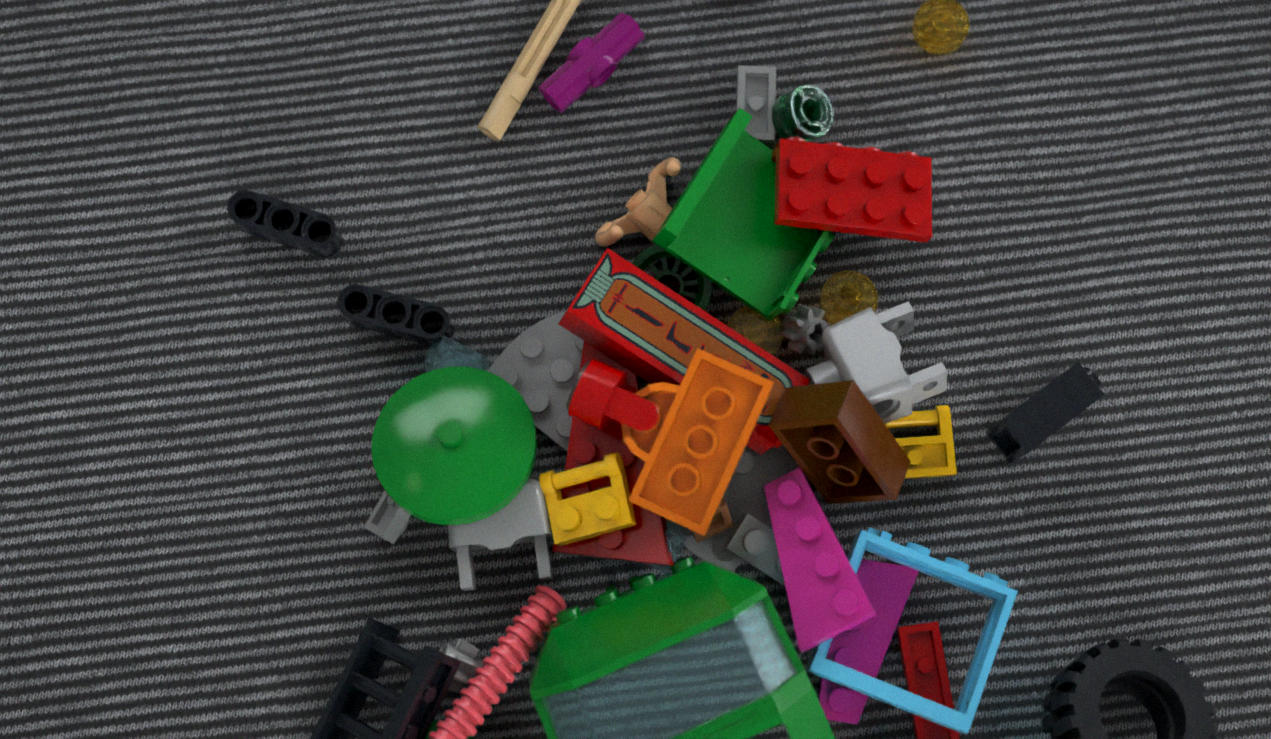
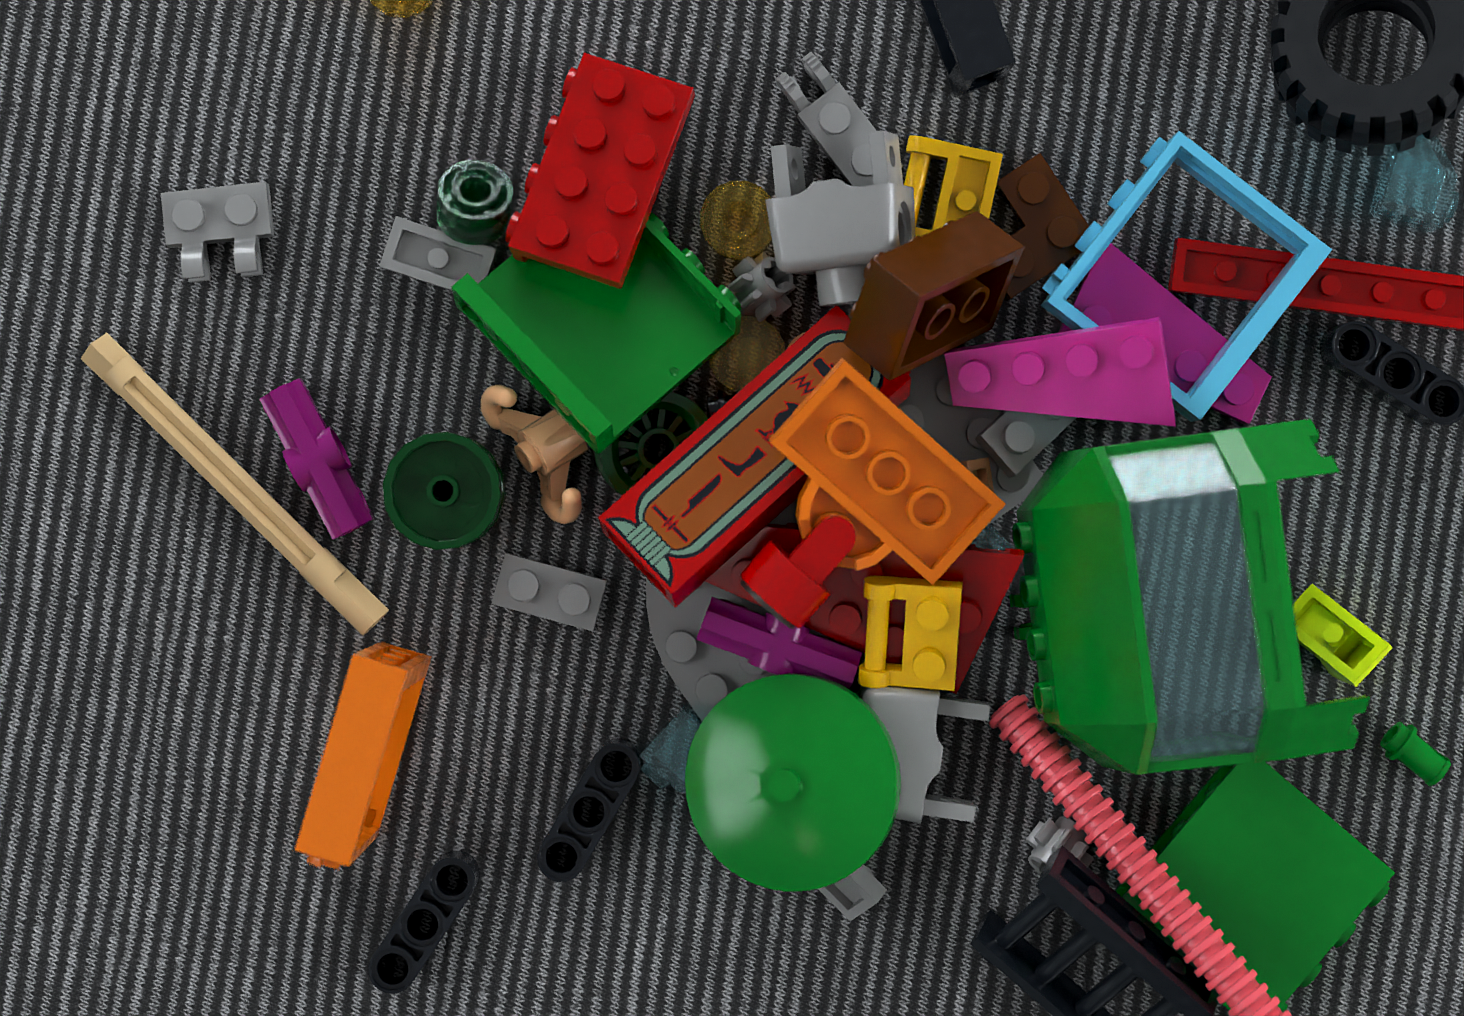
camera: 75 degrees left, 10 degrees up
(393, 111) = (362, 754): none -> orange window
(544, 246) = (549, 592): none -> light grey plate
(550, 410) = (774, 645): none -> magenta piece
(614, 143) = (418, 471): none -> dark green wheel
(916, 523) = (1048, 221): none -> reddish brown plate
(942, 344) = (833, 122): none -> light grey hinge

